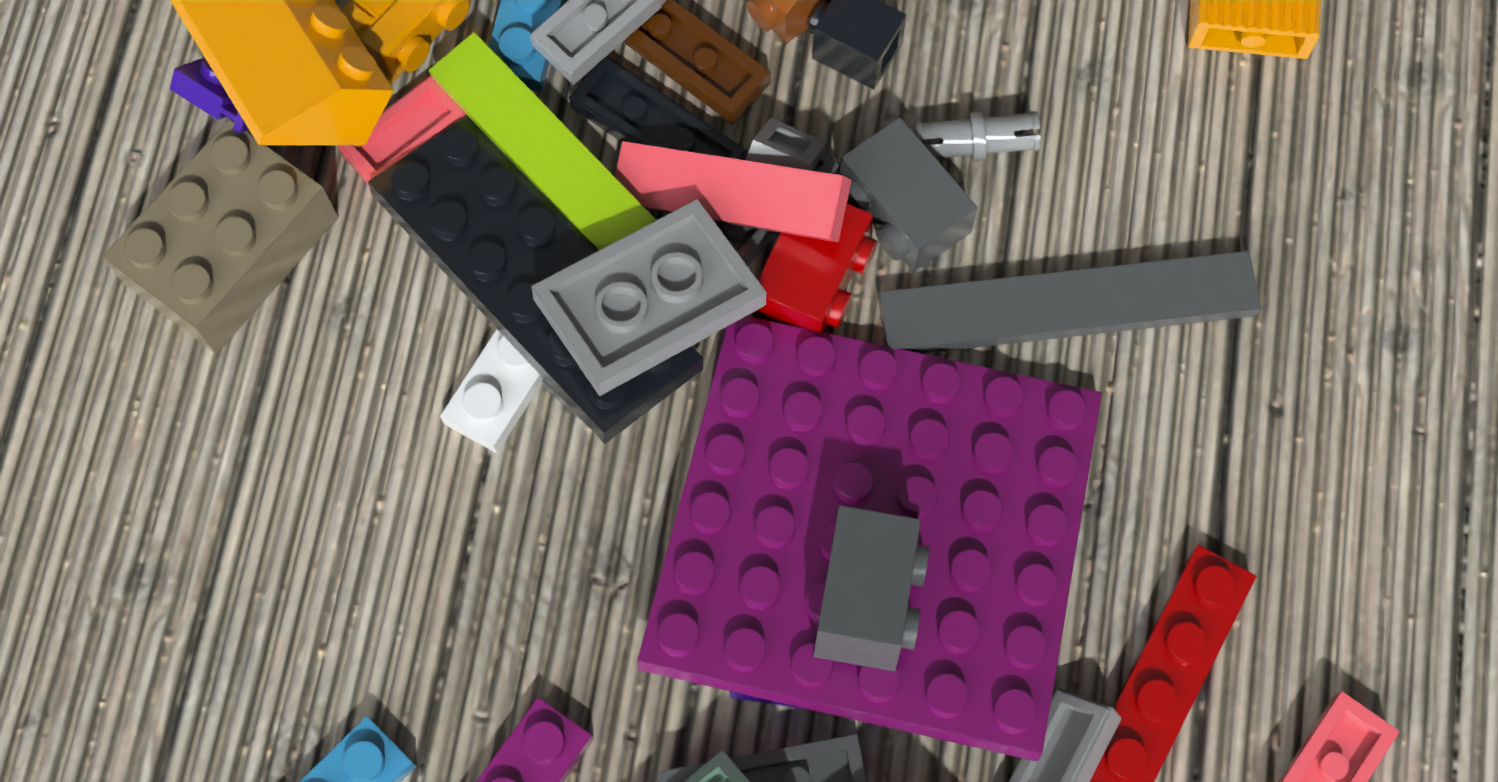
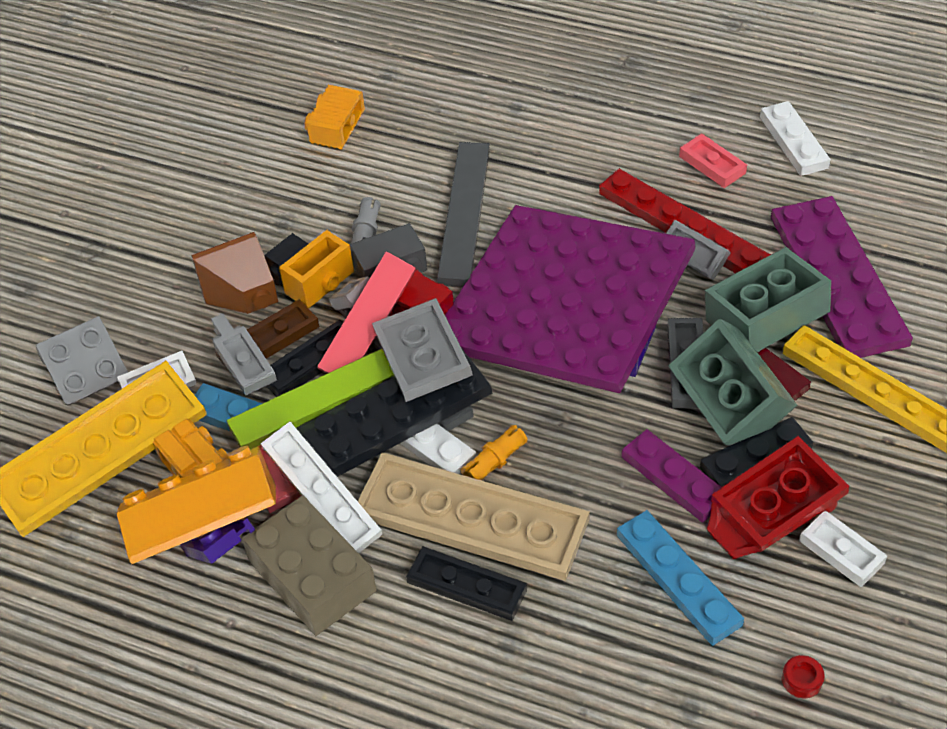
camera: 75 degrees left, 20 degrees down
(237, 490) = (467, 583): none -> black tile
(347, 212) = (321, 486): none -> white plate
(359, 472) = (474, 515): none -> tan plate
(495, 478) = (495, 453): none -> light orange pin
(835, 79) = (317, 269): none -> light orange brick
(869, 587) = (604, 280): dark grey brick -> none

